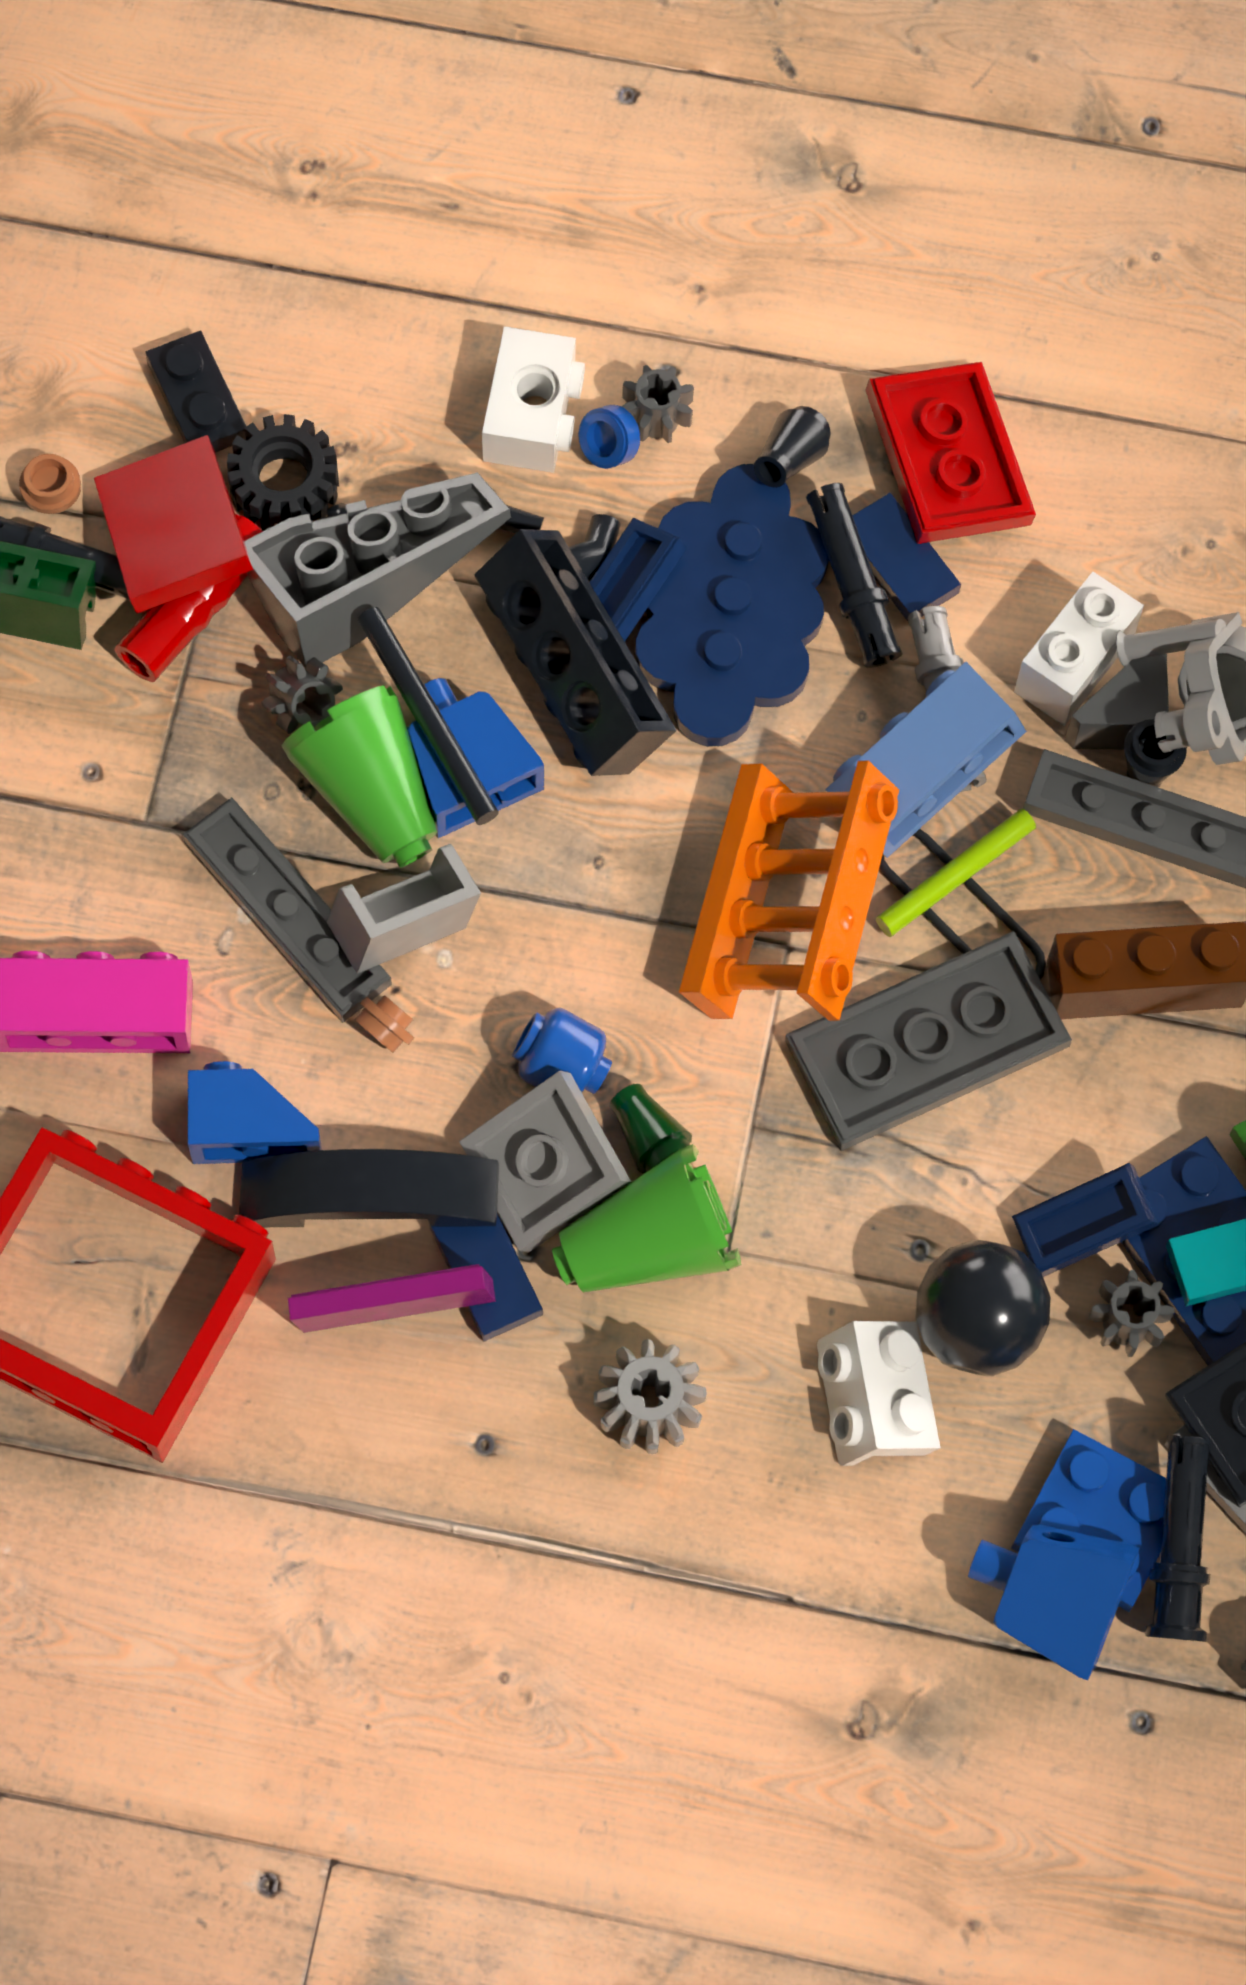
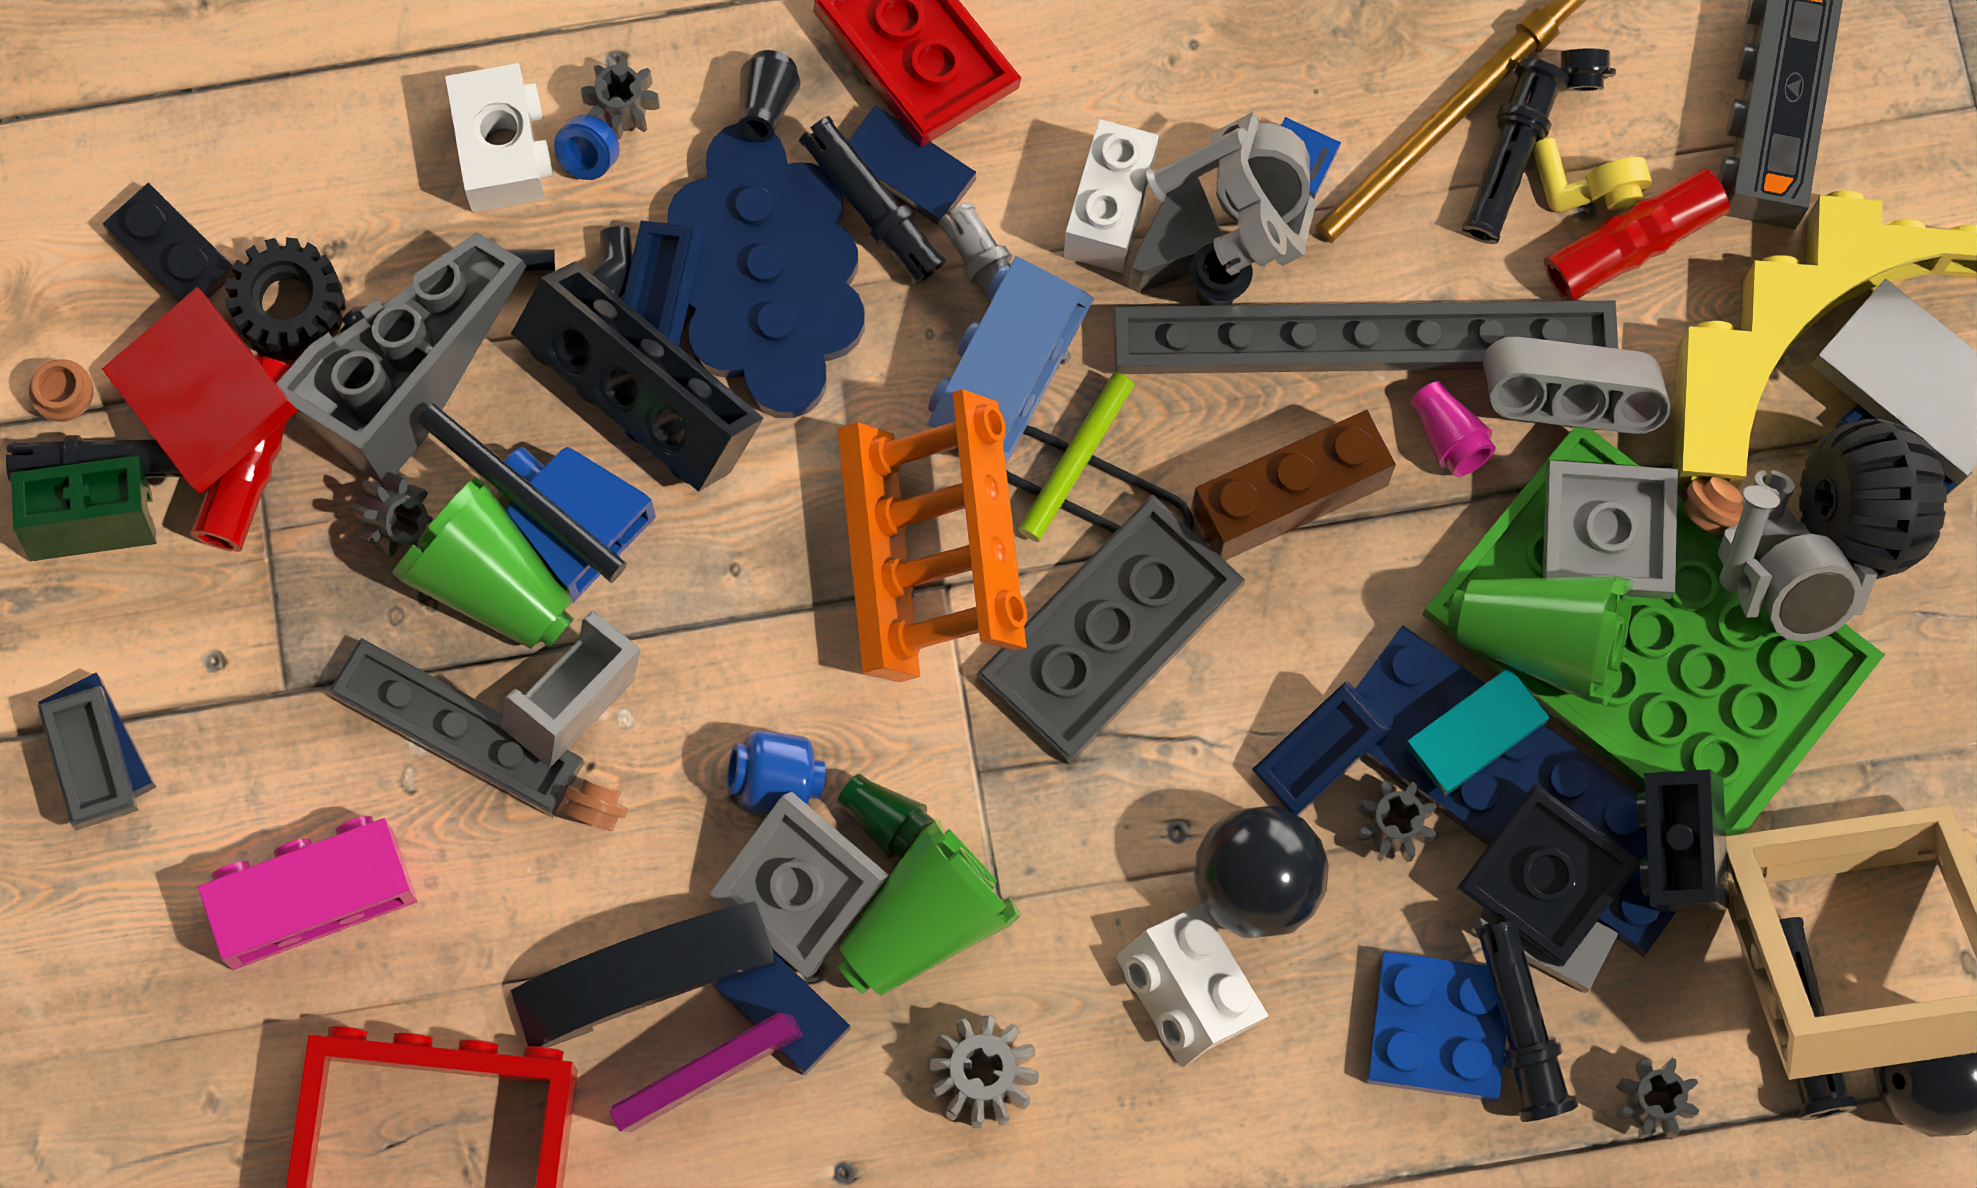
camera: 20 degrees left, 5 degrees up
(242, 1117) = (495, 949): blue slope -> none
(1058, 1592) = (1429, 1113): blue torso -> none

